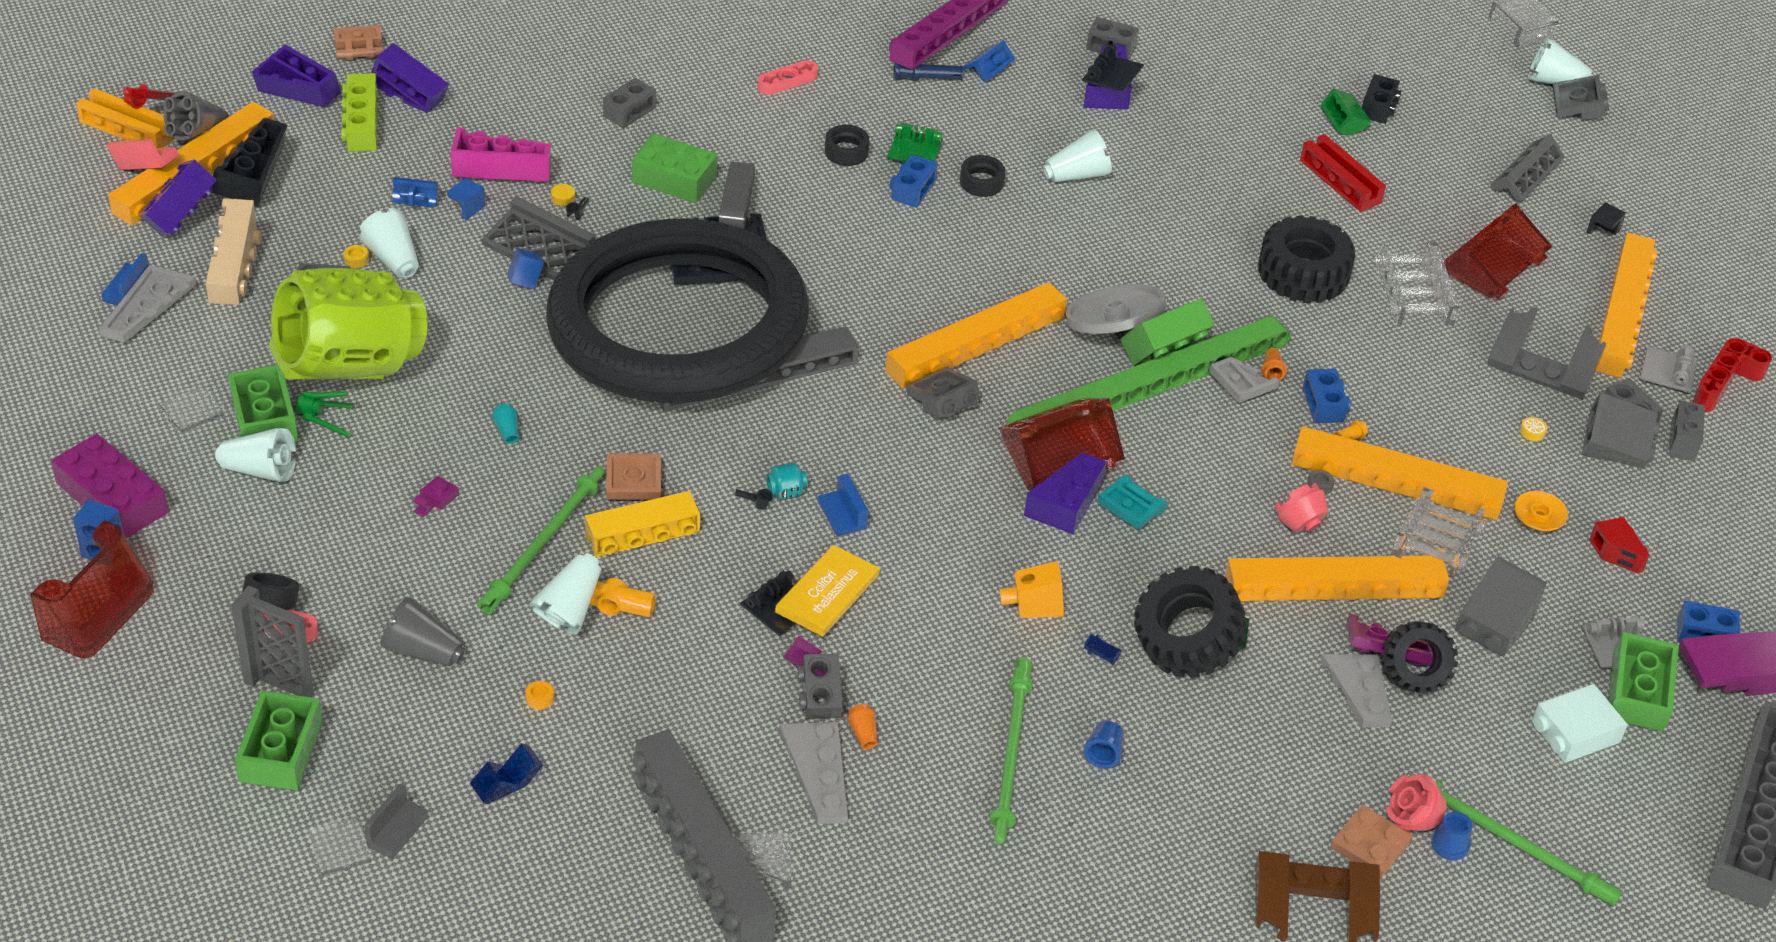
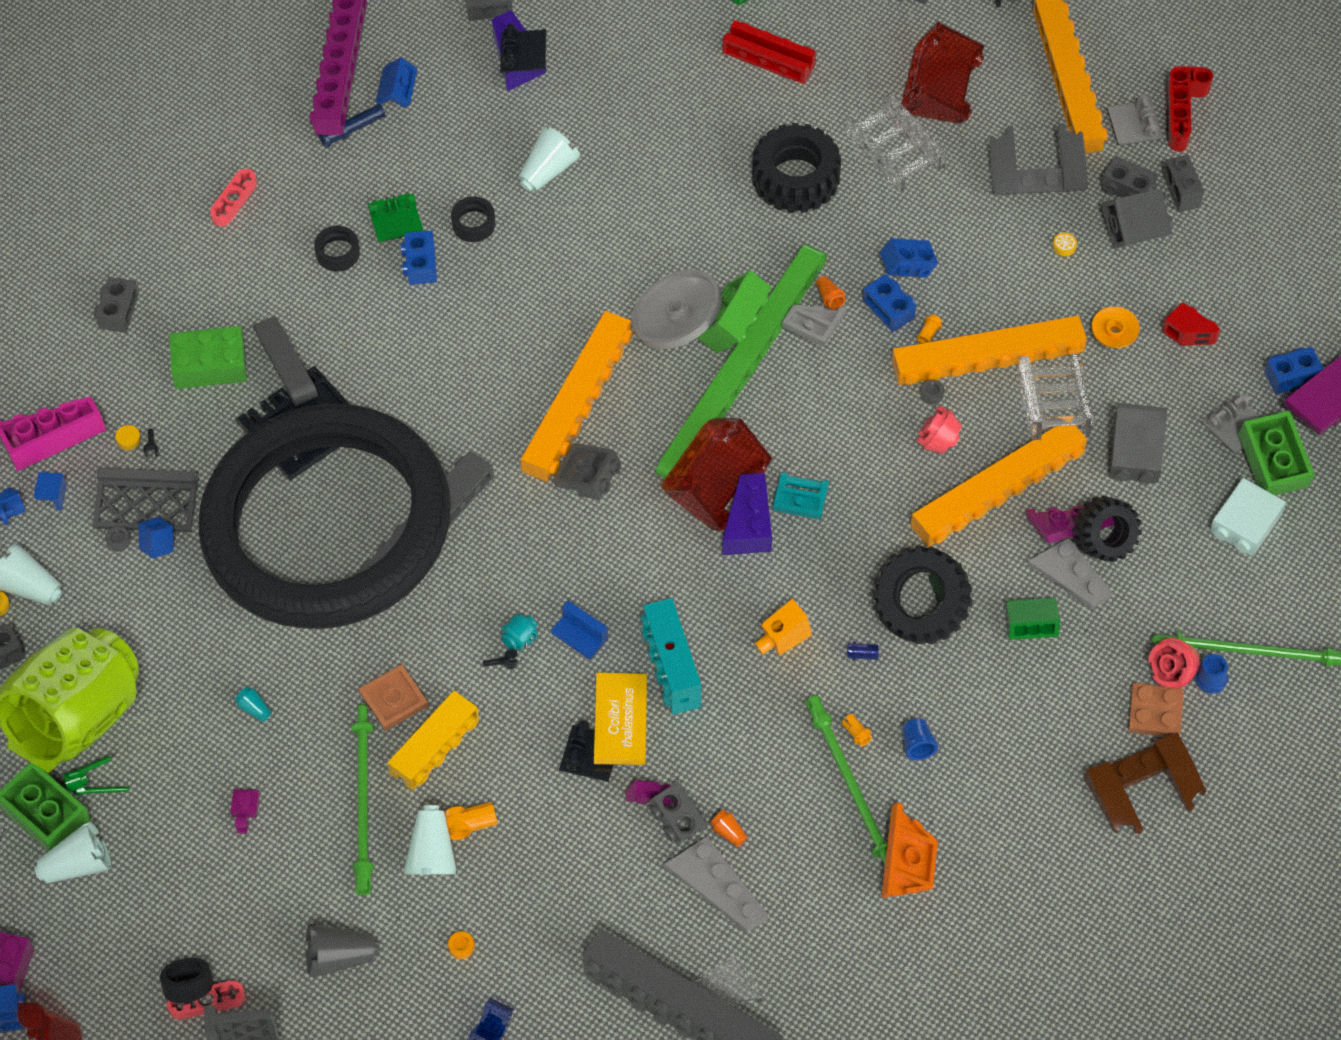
camera: 25 degrees left, 15 degrees up
(495, 258) = (118, 538): none -> dark grey tile
(909, 560) = (671, 656): none -> teal brick
(1022, 834) = (908, 856): none -> orange wing
(1050, 714) = (861, 735): none -> light orange pin
(1293, 702) = (1032, 618): none -> green brick
(1367, 367) = (908, 257): none -> blue brick

